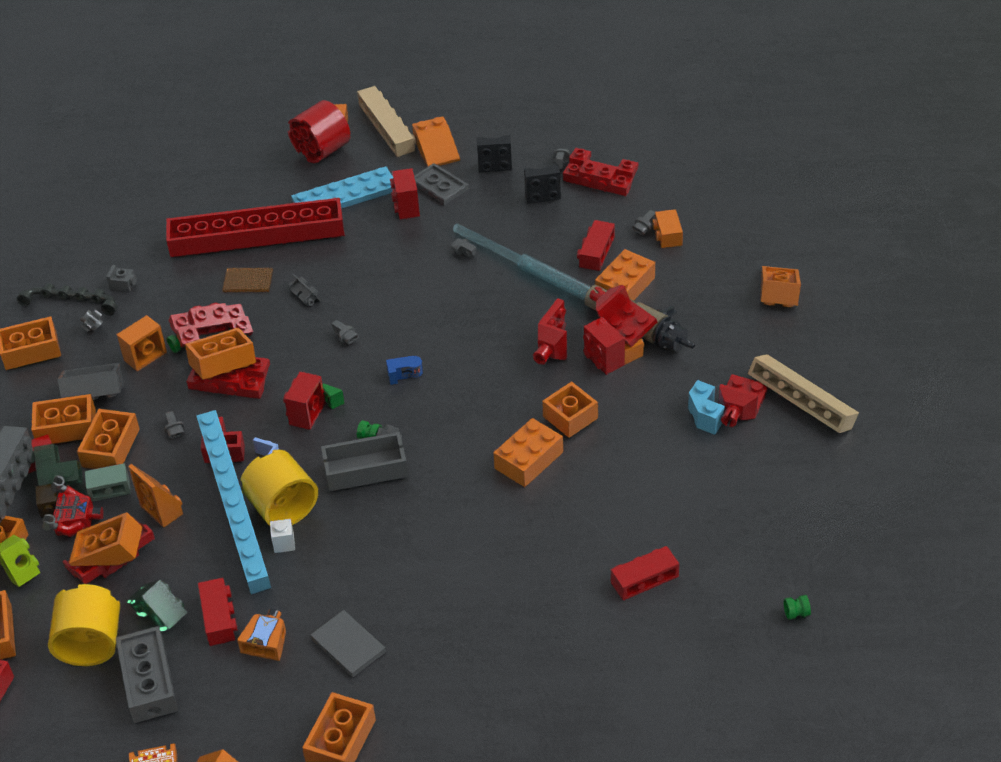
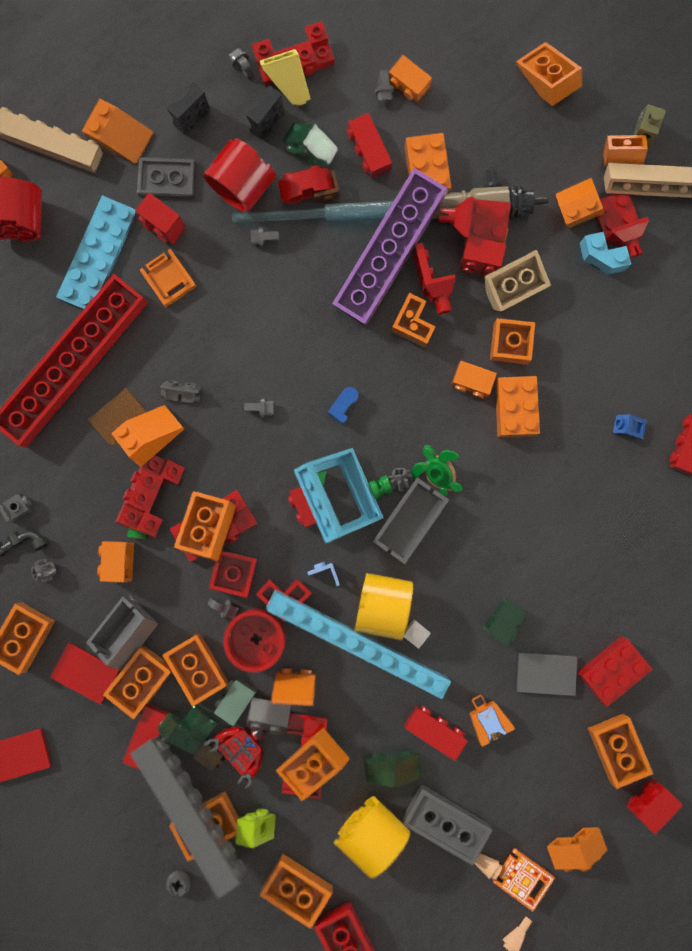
camera: 45 degrees left, 40 degrees up
(35, 389) = (84, 673): none -> red tile
(116, 499) = (268, 716): none -> dark grey brick
(139, 736) = (488, 866): none -> light nougat cone
(169, 446) = (245, 651): none -> red brick
(203, 399) = (234, 574): none -> red brick
(250, 291) = (147, 434): none -> orange slope
(349, 381) = (319, 501): none -> medium azure piece
(354, 577) = (504, 622): none -> clear green brick
(374, 232) = (166, 275): none -> orange container
(401, 677) = (614, 671): none -> red brick
(423, 448) = (438, 470): none -> green animal
(483, 198) = (239, 175): none -> red brick
(508, 350) = (408, 322): none -> orange brick
(513, 413) = (473, 379): none -> orange brick
(525, 236) = (303, 184): none -> red brick
(537, 251) = (328, 195): none -> reddish brown bracket
(537, 293) = (390, 246): none -> medium lavender brick
(555, 217) = (311, 142): none -> clear green brick
(579, 173) = (288, 76): none -> light yellow slope
(606, 526) = (630, 426): none -> blue bracket
(613, 373) = (516, 281): none -> tan slope
(716, 367) = (580, 203): none -> orange slope
(790, 354) = (625, 149): none -> orange brick
(824, 354) = (650, 123): none -> olive torso

